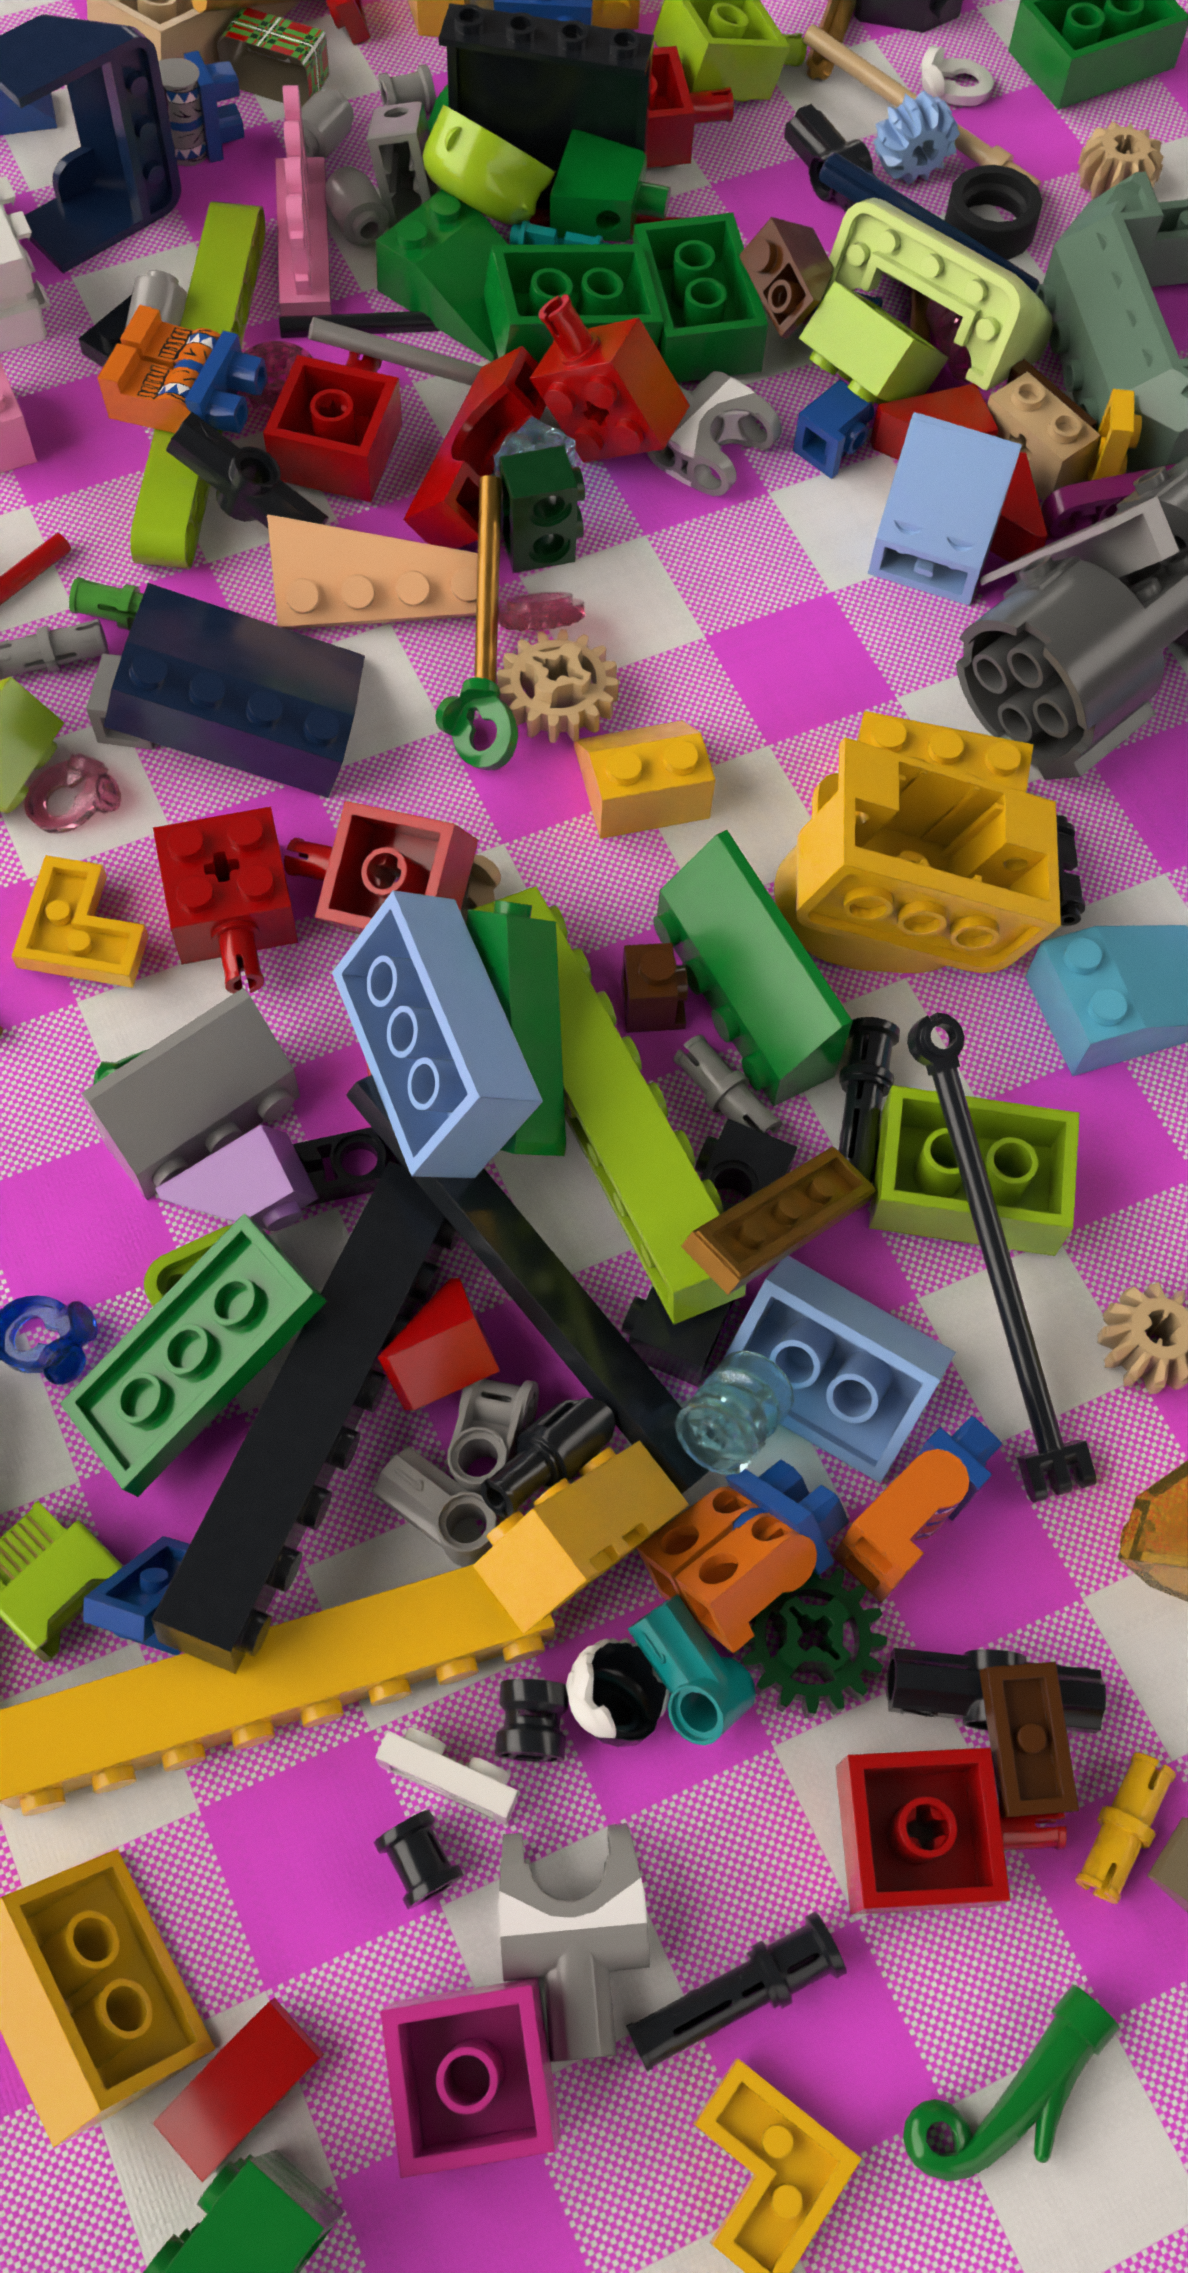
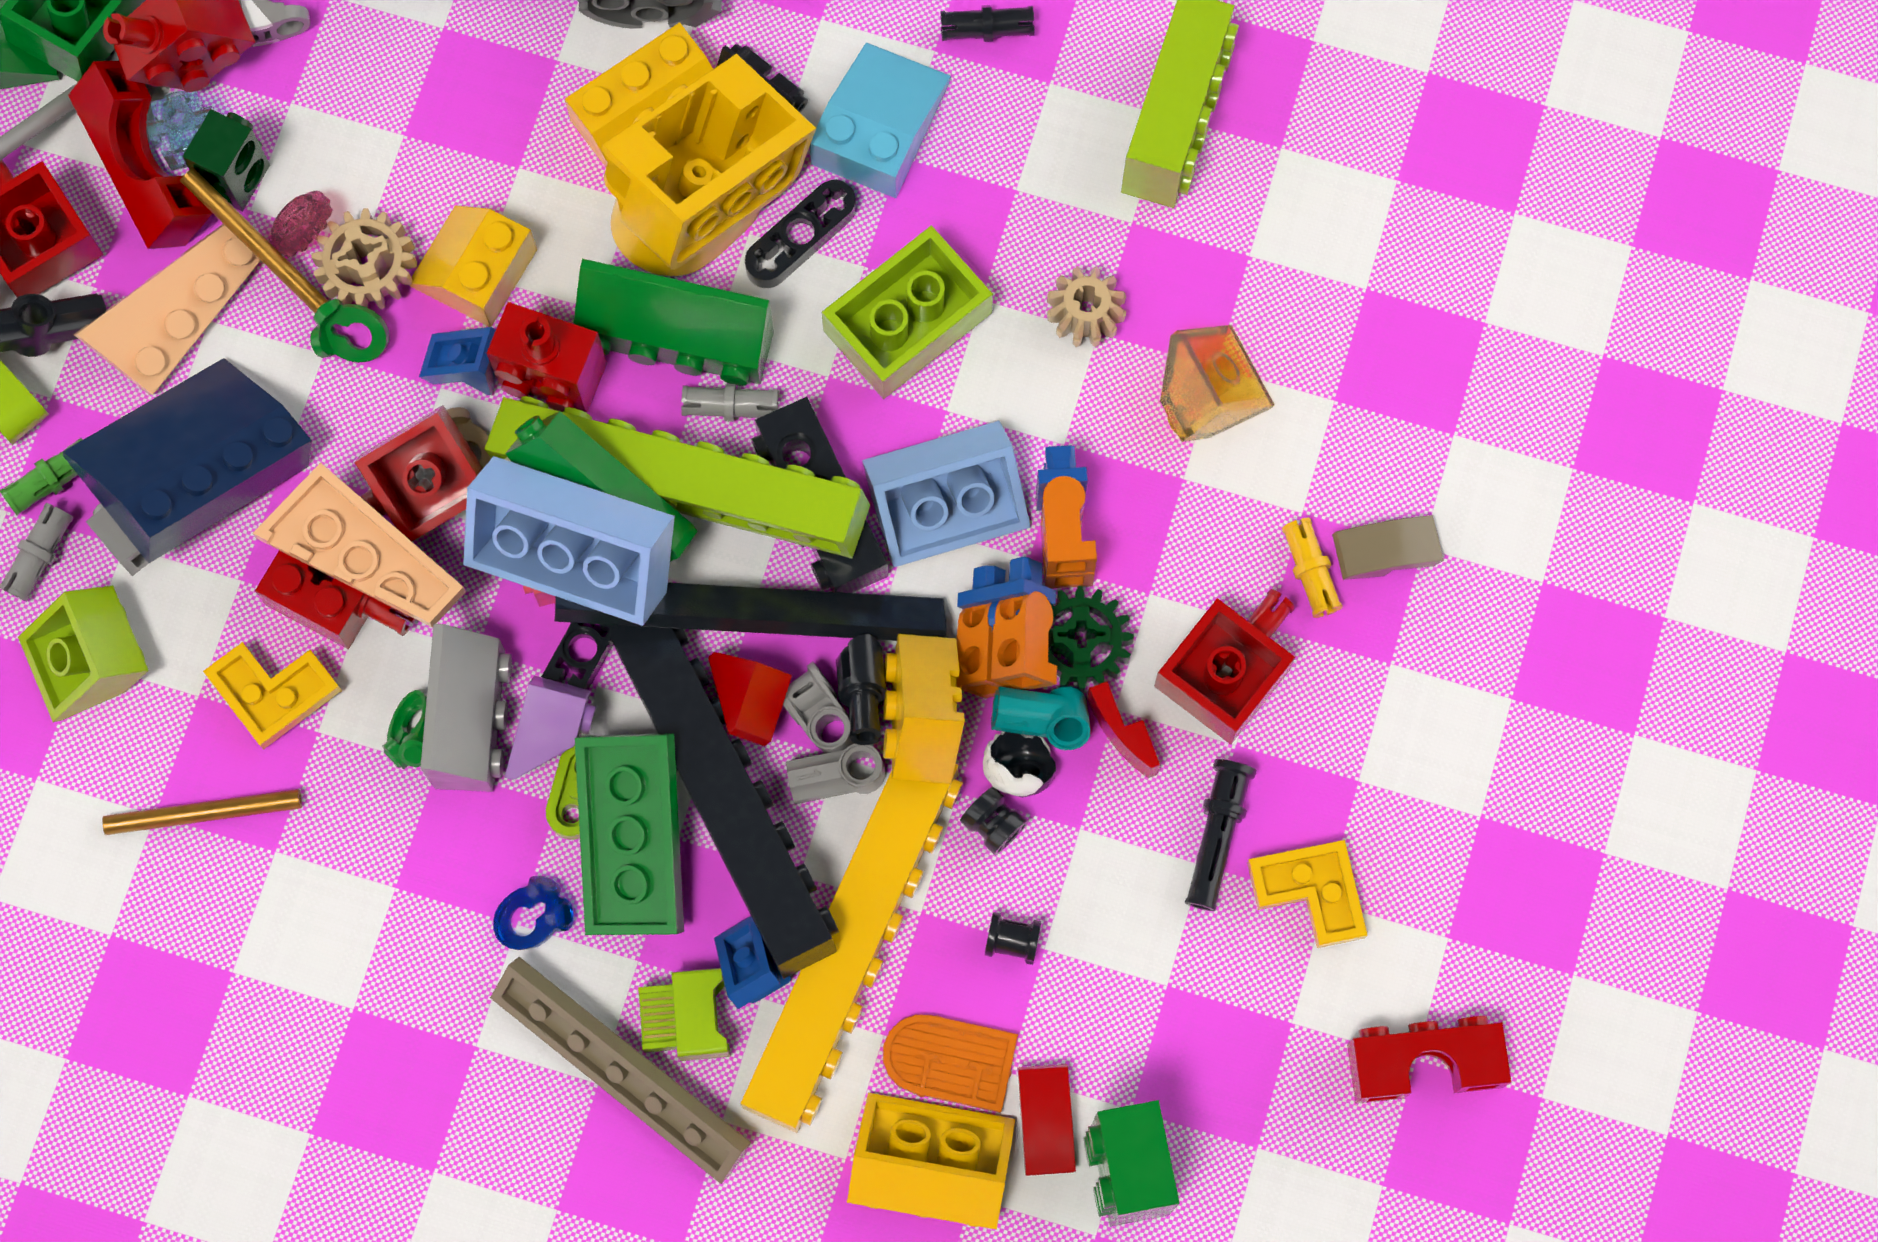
camera: 45 degrees left, 10 degrees up
(99, 793) = (182, 606): clear pink piece -> none
(226, 1913) = (950, 1060): none -> orange window
(265, 867) = (350, 541): none -> light nougat wing
(421, 1761) = (1002, 878): white plate -> none
(470, 2077) = (1143, 994): dark pink brick -> none
(550, 835) = (460, 358): none -> blue slope
(574, 1943) = (1122, 894): light grey connector -> none
(606, 887) = (546, 358): none -> red brick
(653, 988) = (628, 387): reddish brown brick -> none
(734, 1412) = (927, 569): clear light blue wheel -> none
(751, 1791) = (1130, 740): none -> red slope
(778, 1219) = (849, 446): pearl gold tile -> none
(866, 1083) = (797, 320): black pin -> none
(951, 1687) = (1189, 569): black piece -> none
(970, 1003) = (833, 219): none -> black beam
(1028, 1740) = (1229, 575): reddish brown plate -> none
(1033, 2096) = (1390, 730): green plant -> none
(1052, 1452) = (1097, 420): black hinge -> none

